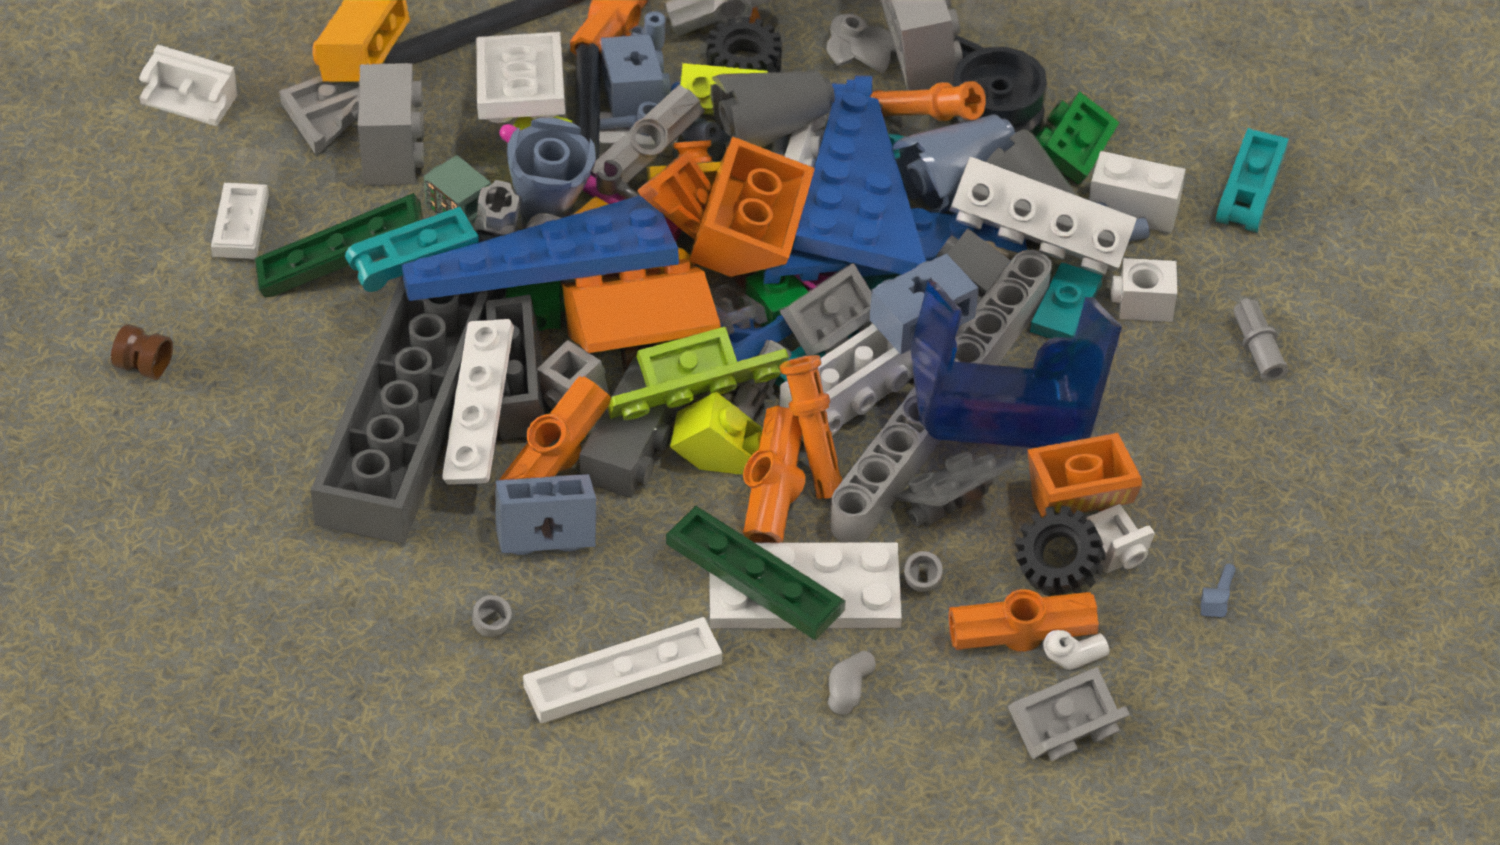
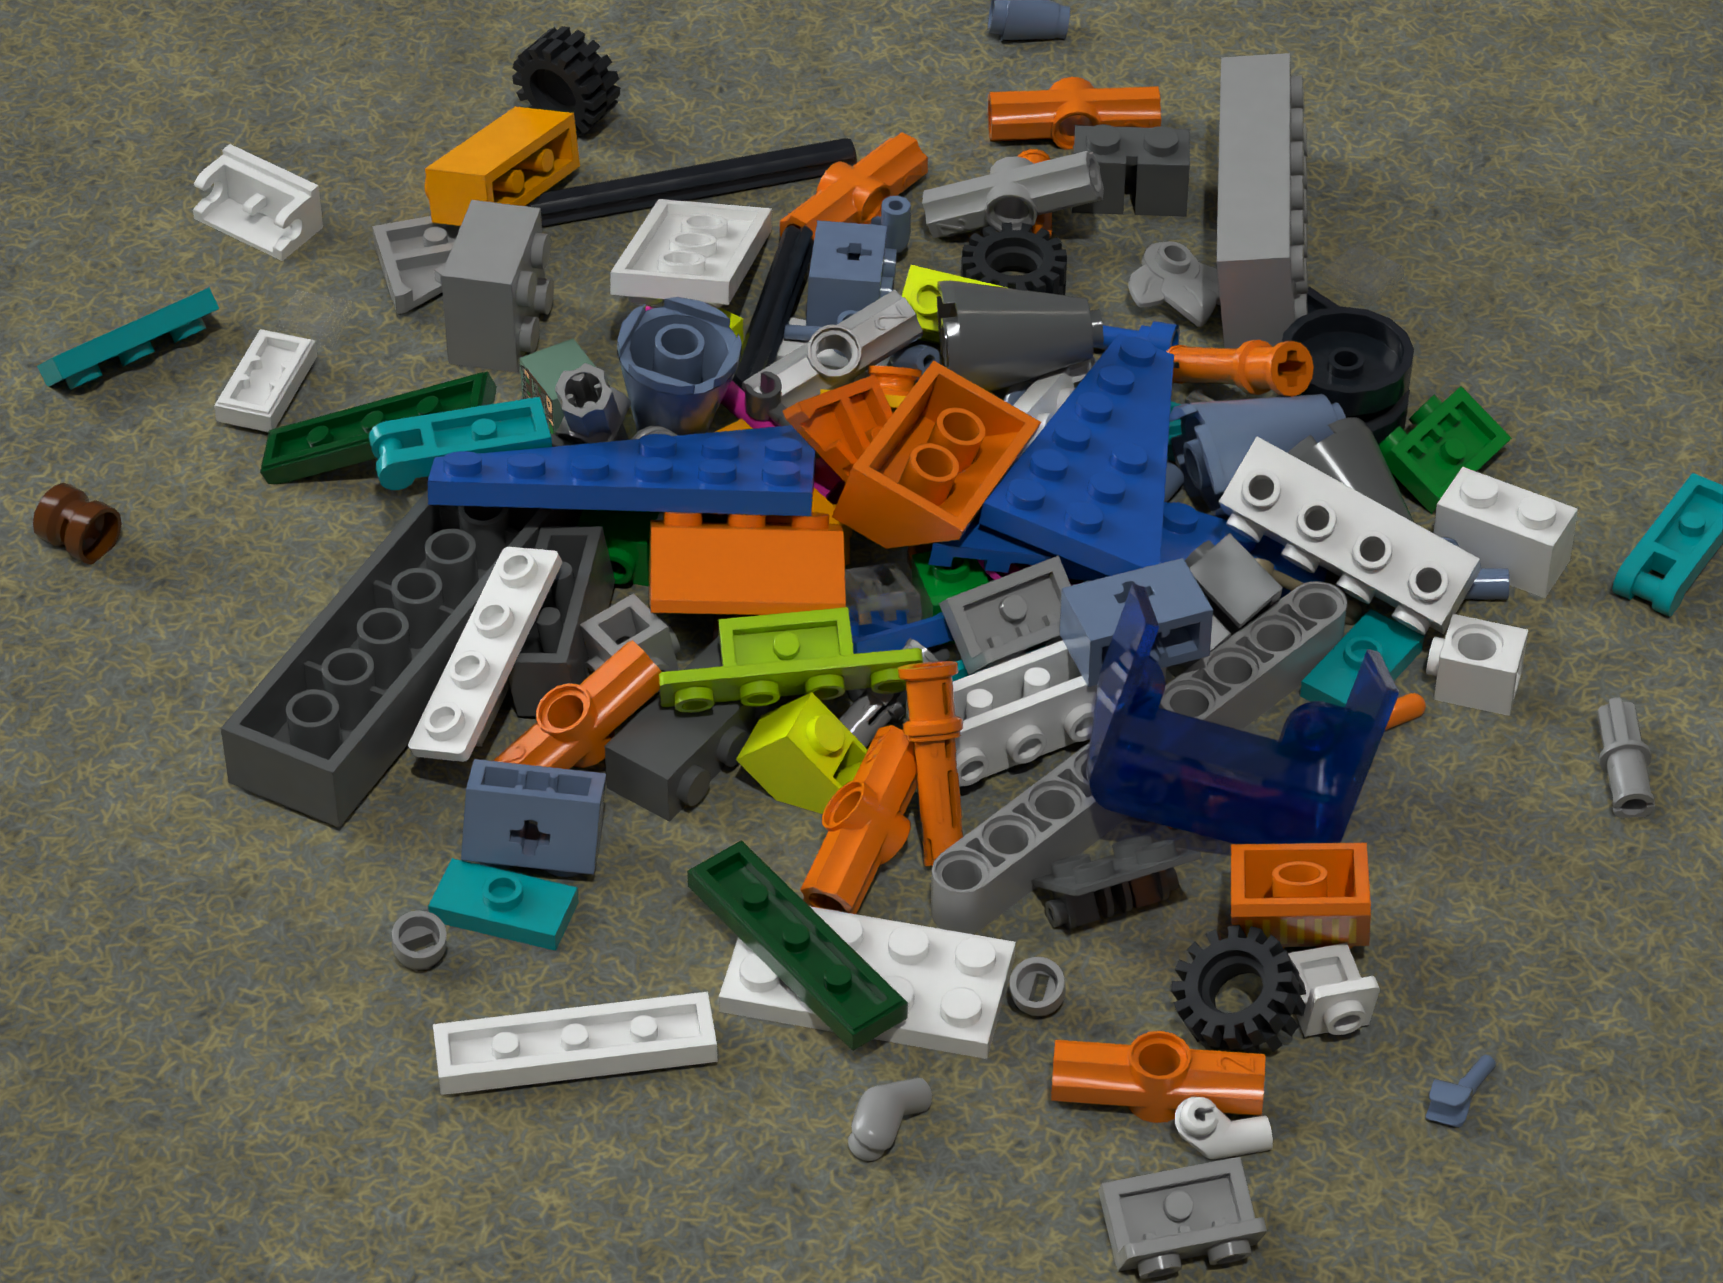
camera: 15 degrees right, 5 degrees down
(130, 206) = (129, 341): none -> teal plate
(539, 578) = (504, 904): none -> teal plate

